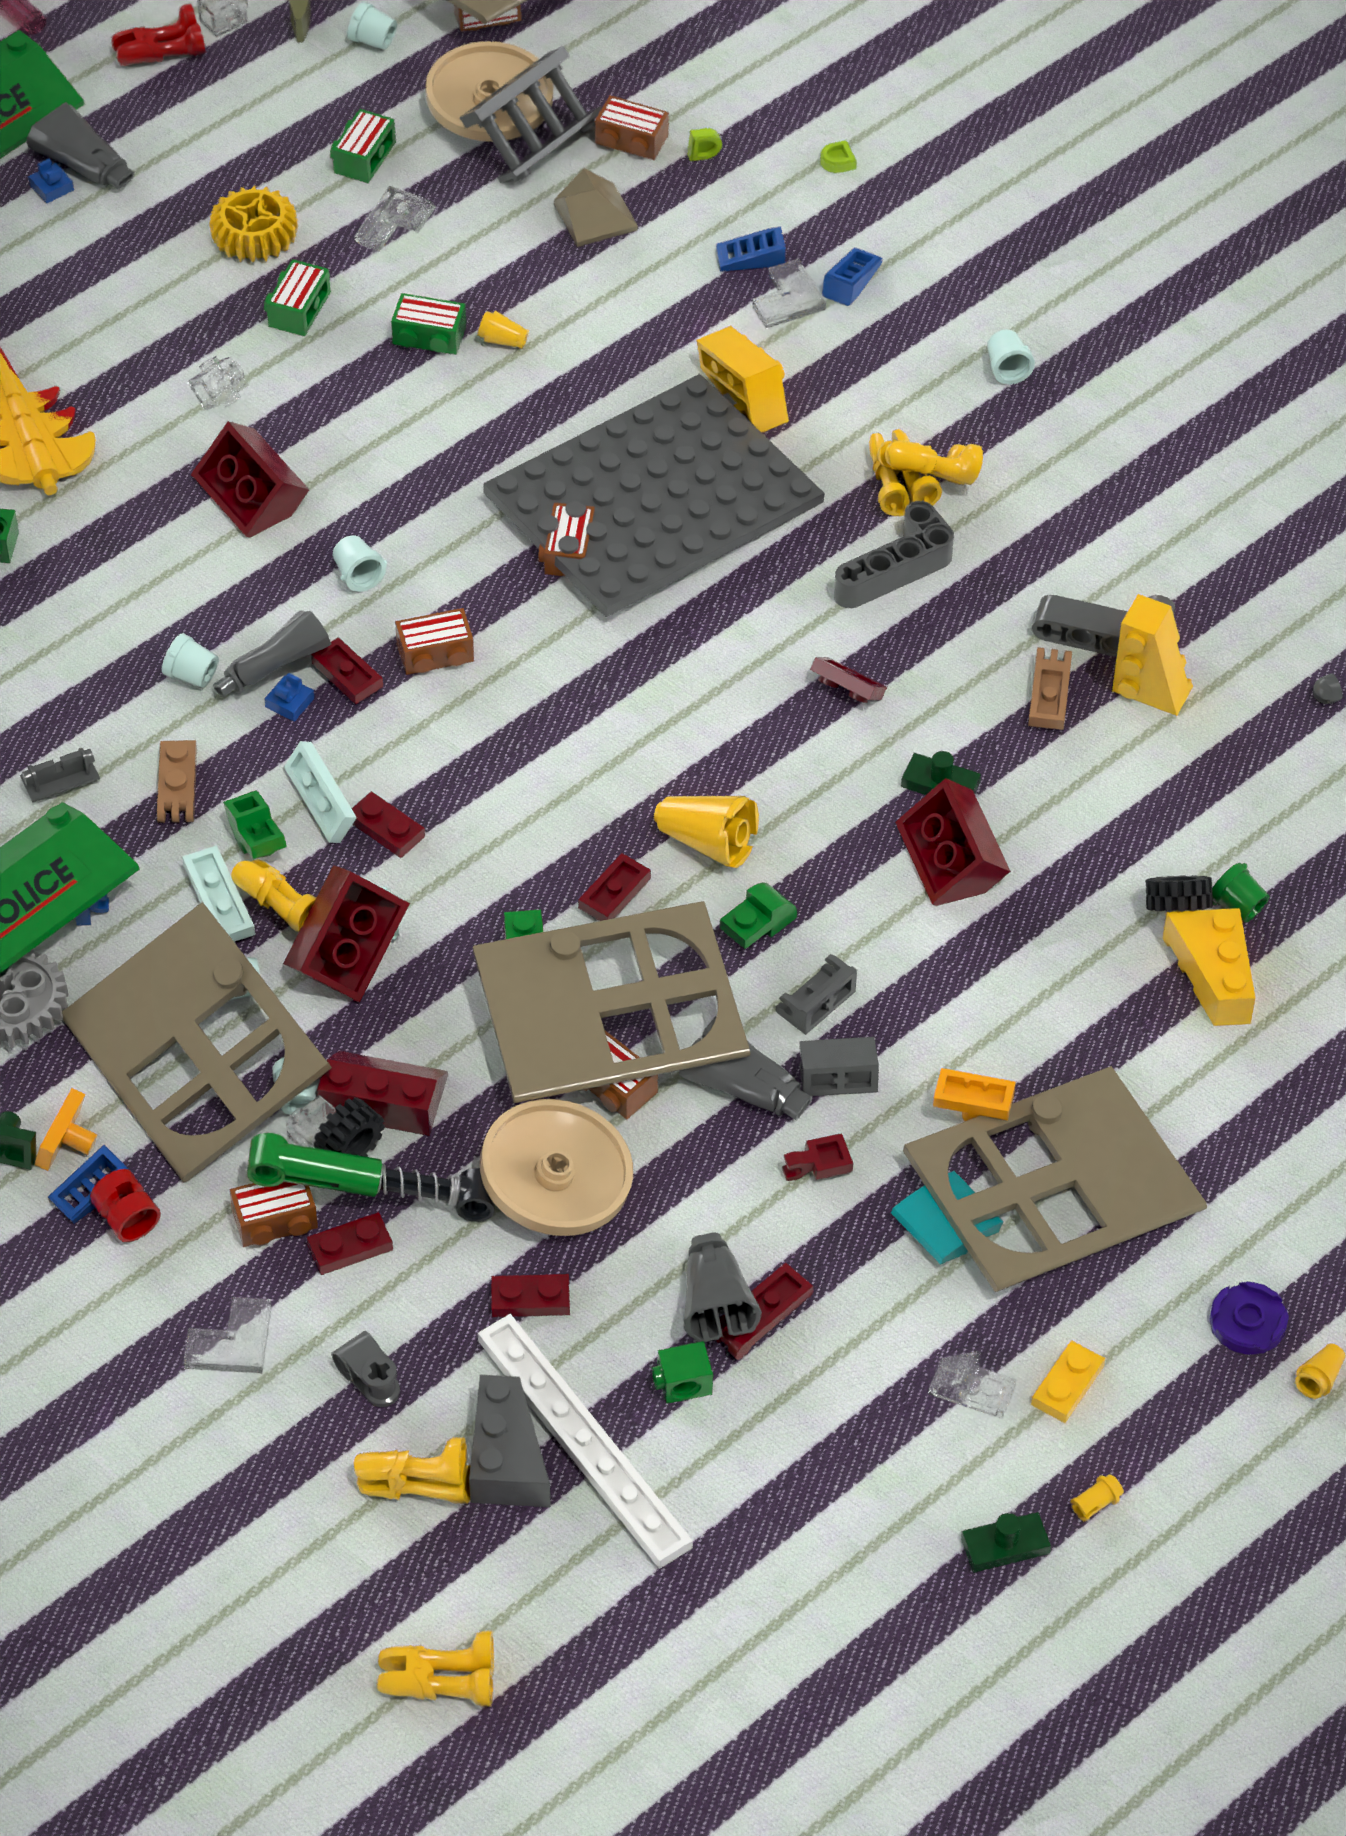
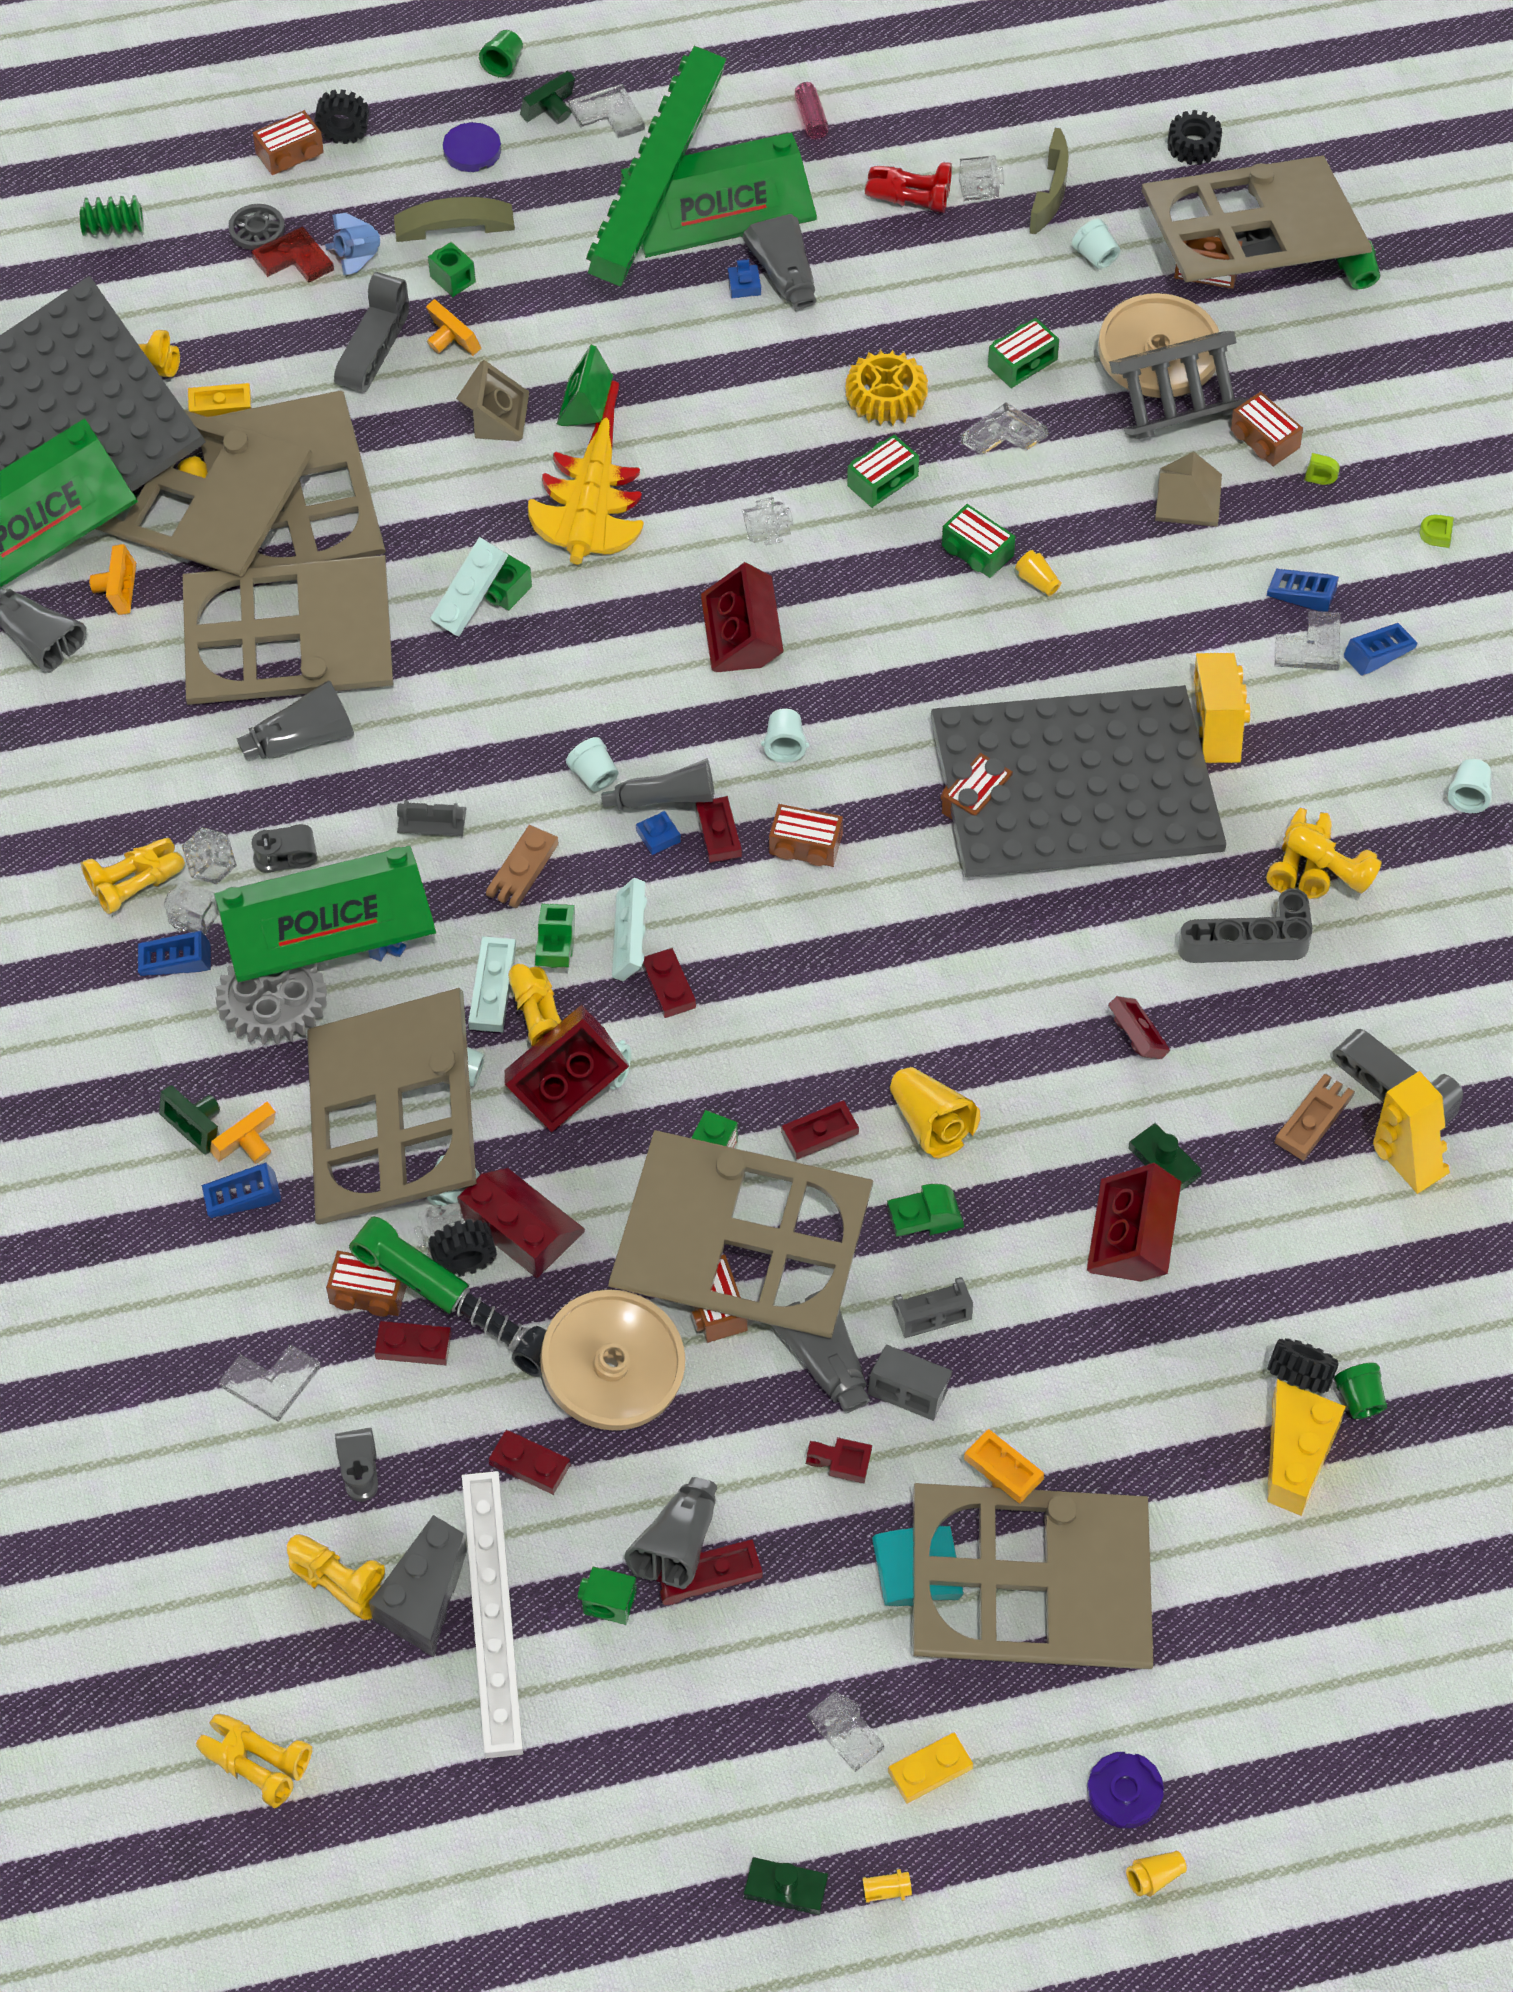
camera: 30 degrees right, 5 degrees up
(125, 1205) = (252, 1223): red wheel -> none

